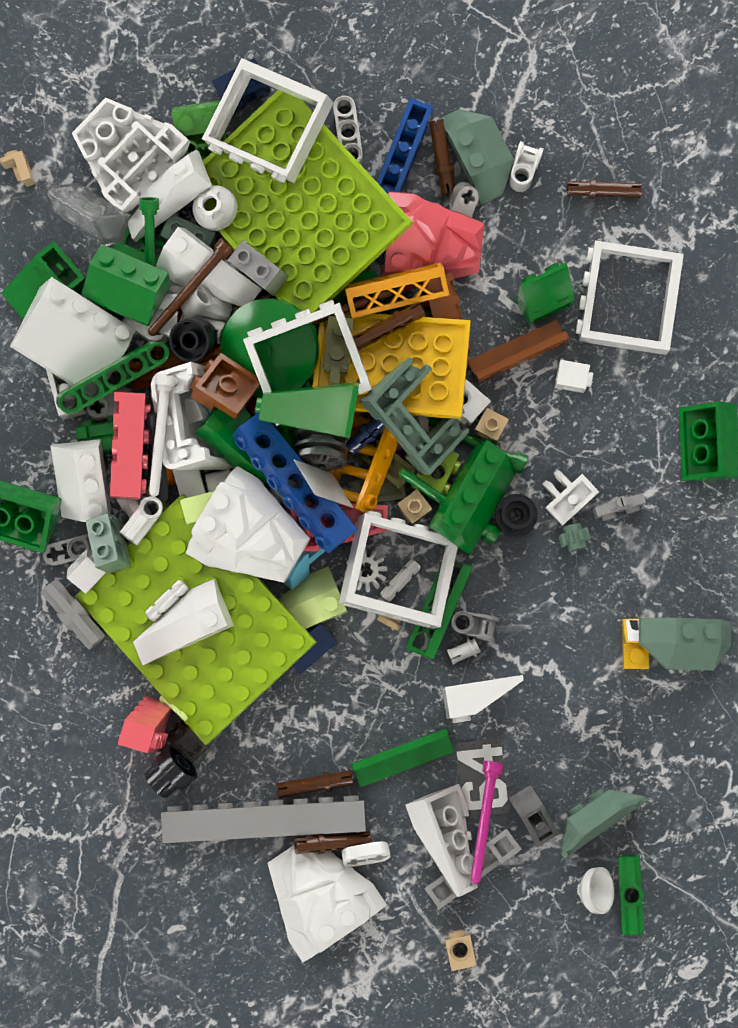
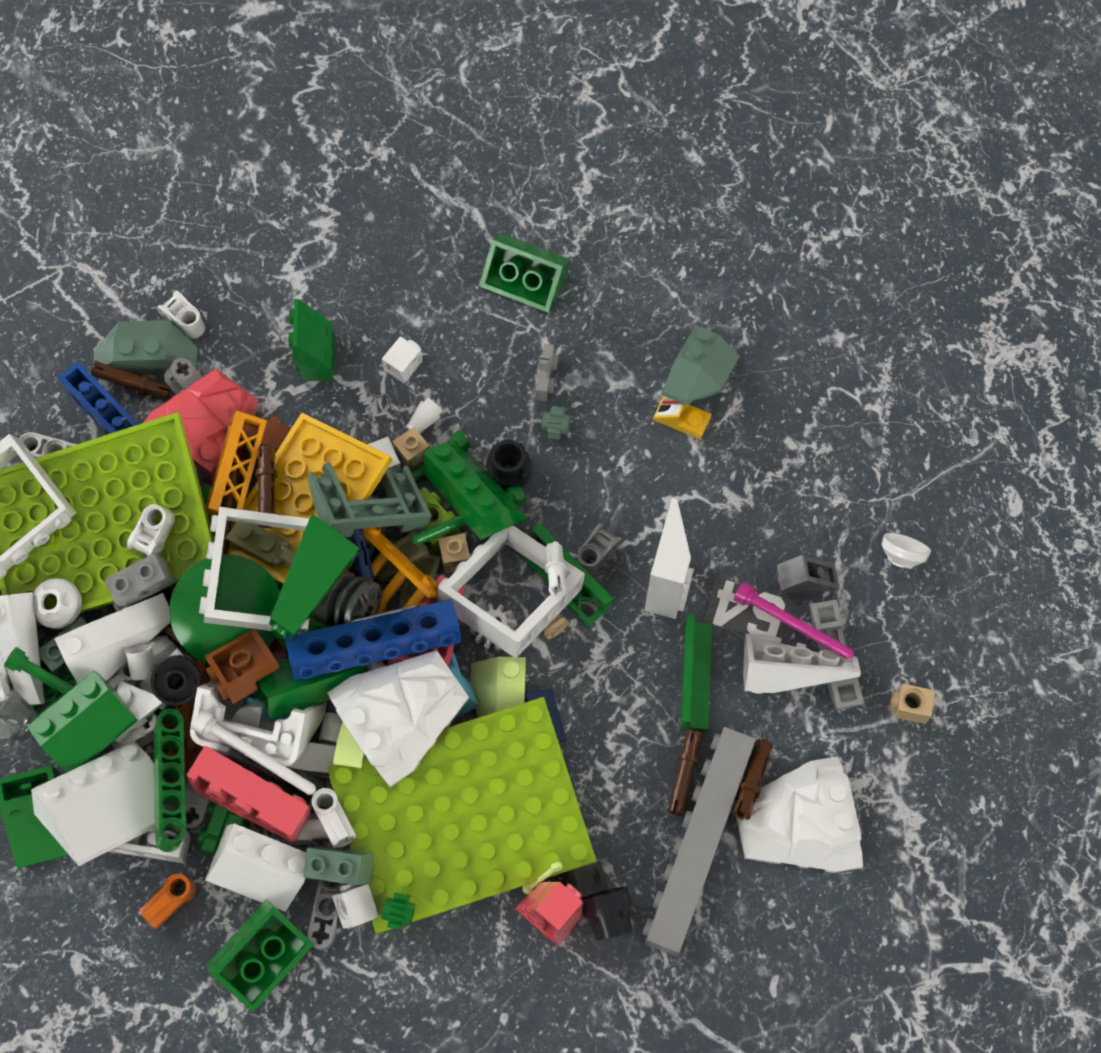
camera: 70 degrees left, 15 degrees down
(26, 422) = (166, 902): none -> orange piece
(73, 614) = (393, 944): light grey piece -> none
(93, 607) = (398, 911): none -> green gear
(167, 600) = (429, 830): white axle -> none
(189, 620) = (460, 814): white wedge -> none
(221, 252) = (104, 607): reddish brown piece -> none
(297, 255) = (149, 532): none -> white piece
(365, 854) = (778, 752): white beam -> none
(400, 580) = (517, 597): white axle -> none
(430, 601) = (555, 568): none -> white axle
(464, 651) = (617, 571): white pin -> none
(517, 351) = (353, 392): dark orange fence -> none
(529, 421) = (424, 415): none -> white cone
(571, 499) = (517, 410): white hinge -> none
(595, 817) = (833, 522): sand green wedge -> none
(605, 189) = (237, 266): reddish brown pin -> none
(630, 912) = (937, 527): green piece -> none
(661, 346) = (374, 246): white window -> none

